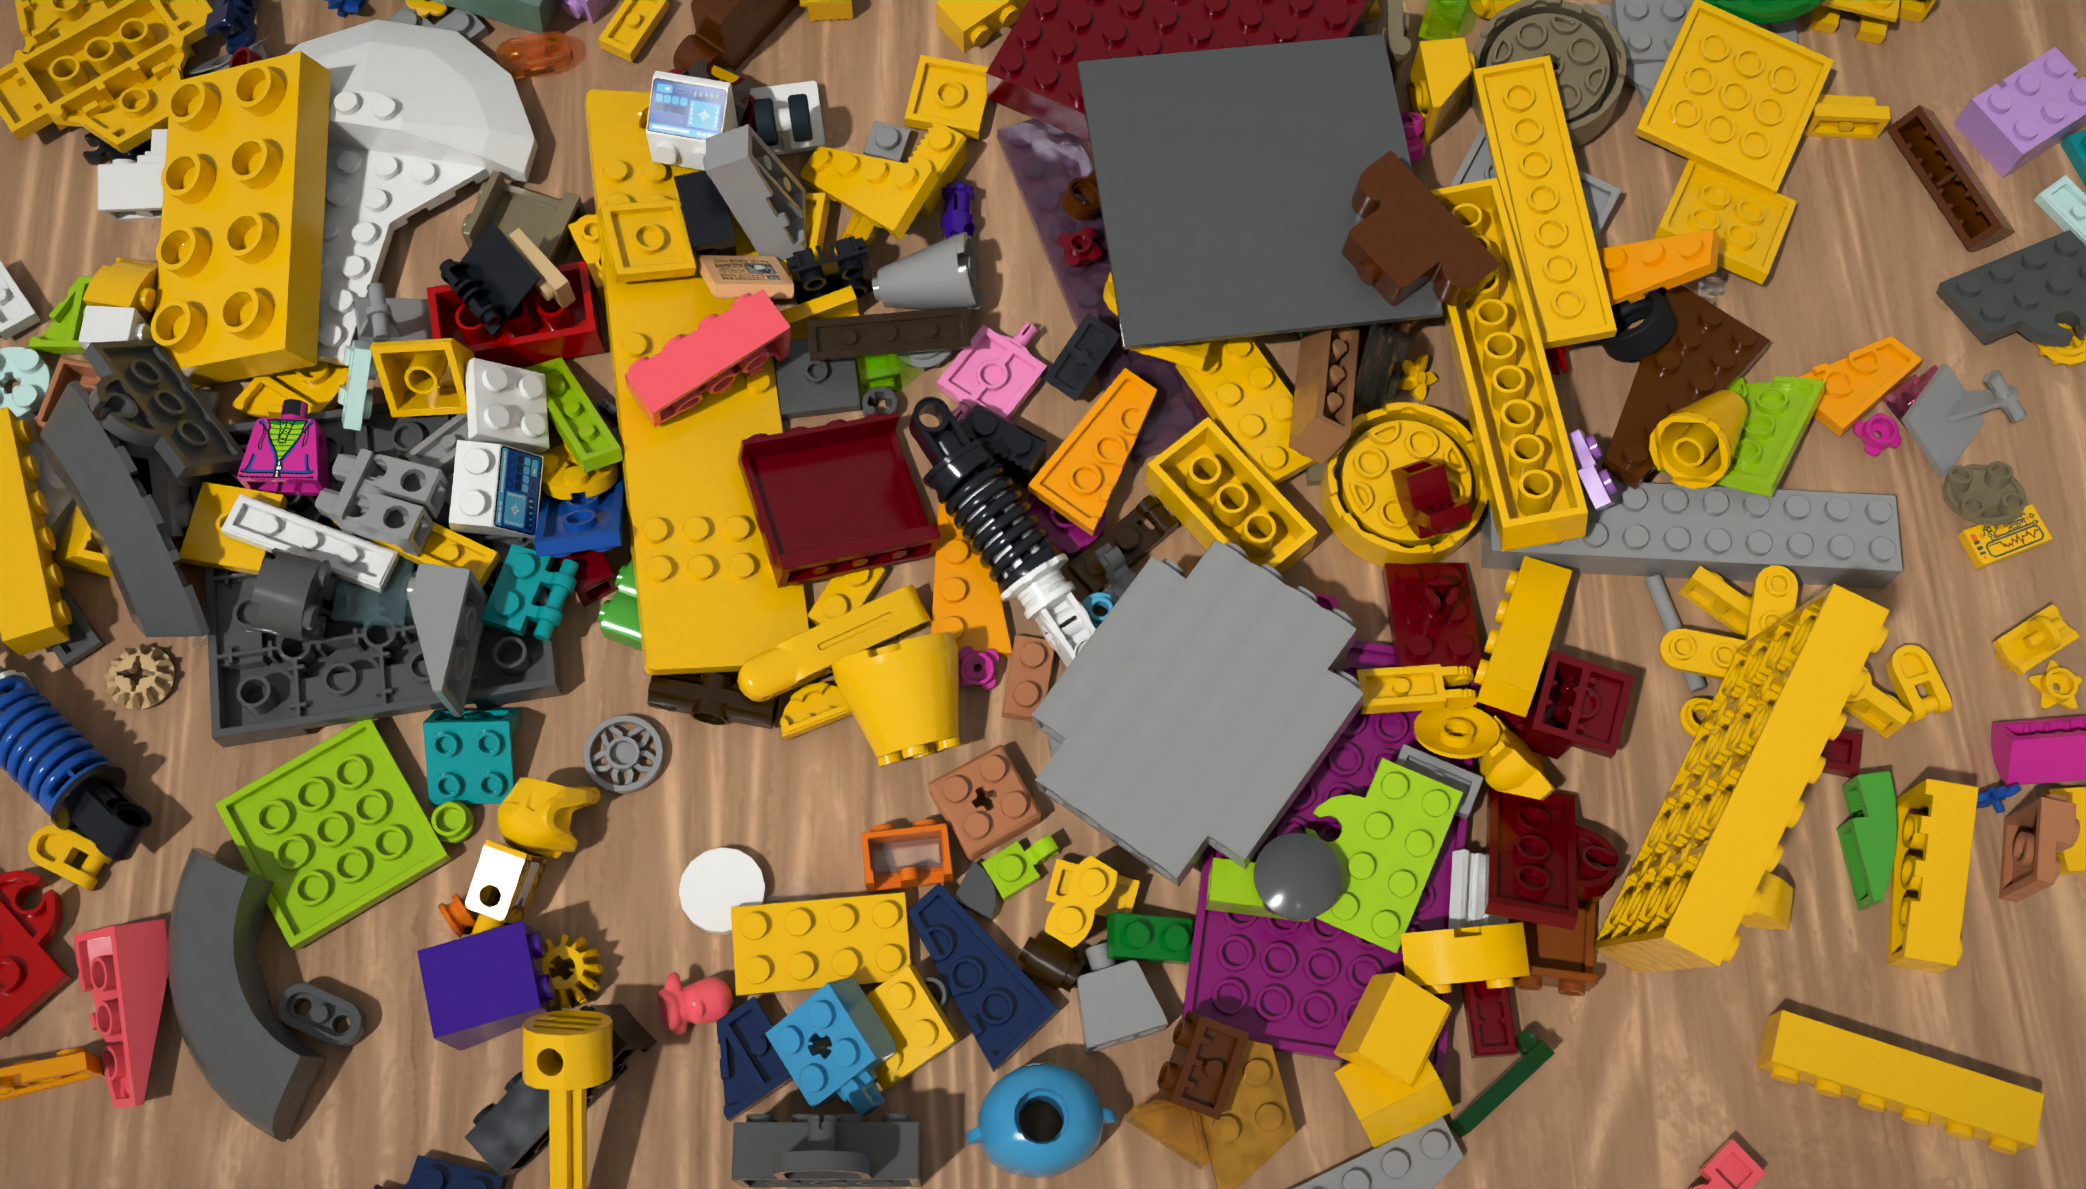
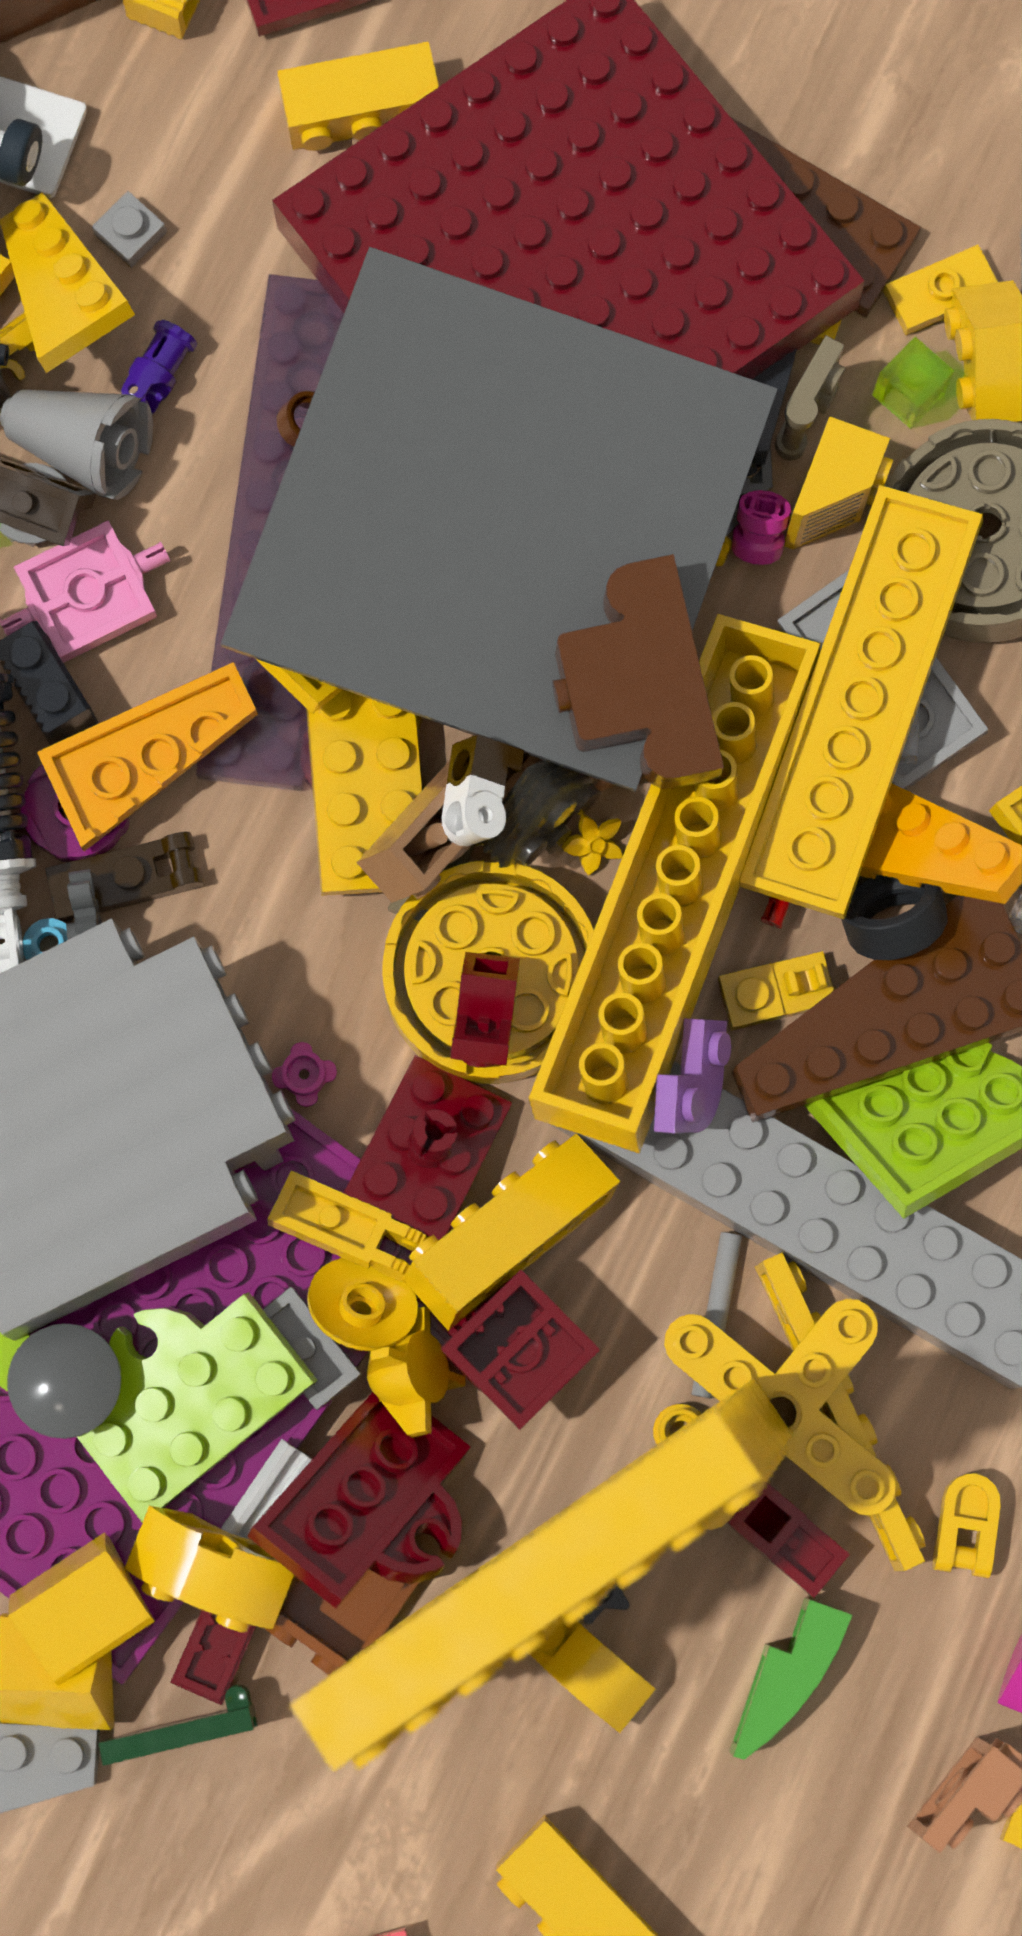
camera: 30 degrees right, 10 degrees up
(943, 152) = (163, 286): yellow brick -> none
(948, 94) = (230, 202): yellow plate -> none
(1079, 257) = (261, 468): dark red plate -> none
(1081, 356) = (189, 621): black hinge -> none
(1228, 499) = (264, 894): yellow brick -> none
(1343, 359) = (476, 788): none -> leg
(1593, 406) = (775, 990): none -> yellow plate
(1699, 439) = (861, 1101): yellow cone -> none
(1930, 875) = (823, 1763): yellow wedge -> none
(1994, 795) = (968, 1708): blue plant -> none

